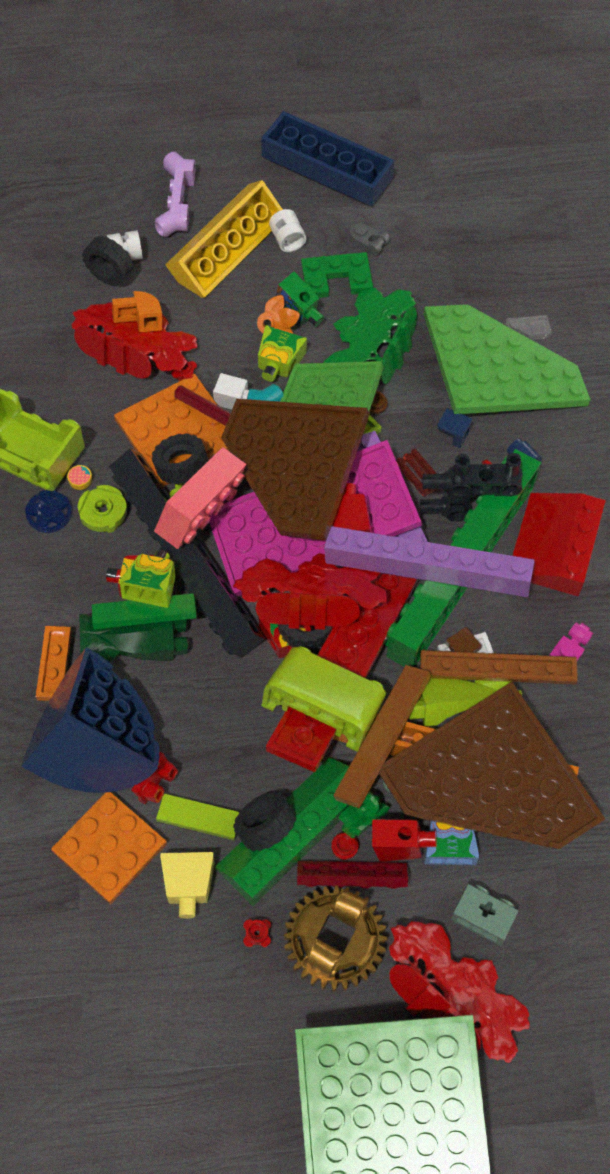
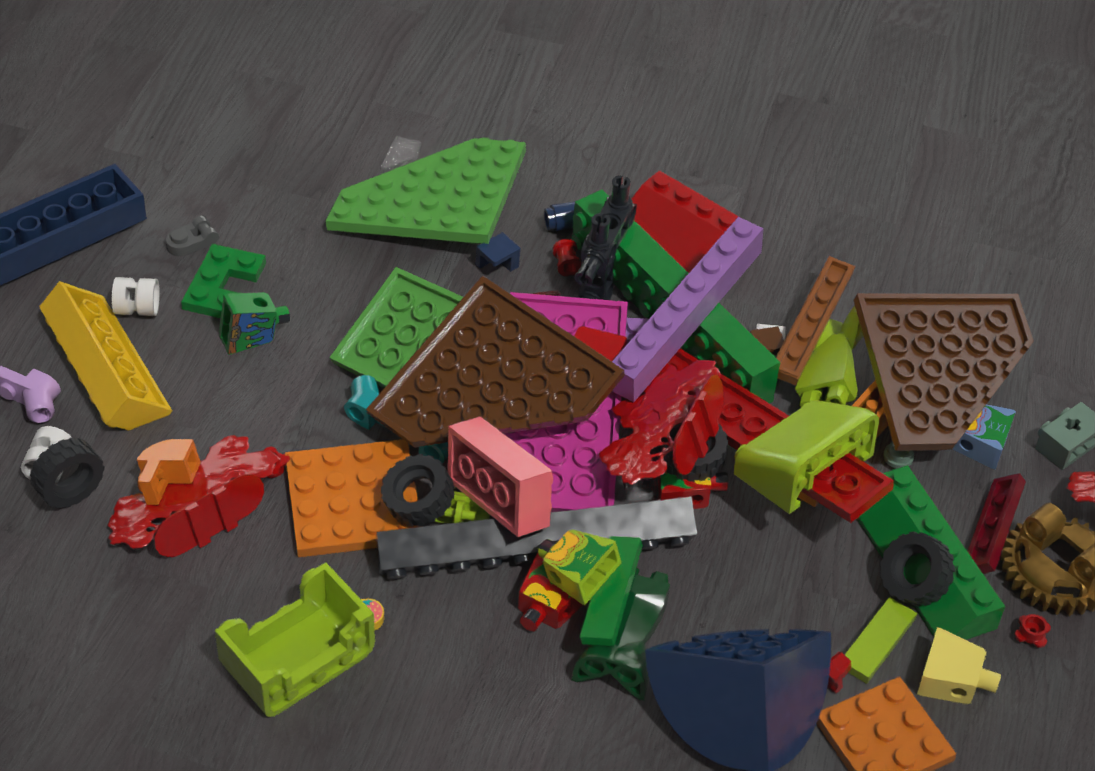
camera: 70 degrees left, 15 degrees down
(48, 511) = (399, 663): clear blue wheel -> none
(53, 660) = (623, 717): orange plate -> none
(107, 520) = (428, 619): lime plate -> none
(202, 404) = (347, 451): dark red axle -> none
(228, 389) = (335, 425): white brick -> none
(280, 317) = (263, 343): orange plate -> none
(280, 352) = (305, 365): torso -> none
(344, 846) = (959, 520): red plate -> none
(360, 819) = (939, 485): green hips -> none
(373, 327) = (322, 277): green plant -> none
(382, 736) = (890, 443): dark orange tile -> none
(400, 839) = (977, 464): red torso -> none
(571, 648) = (800, 272): dark pink plate -> none

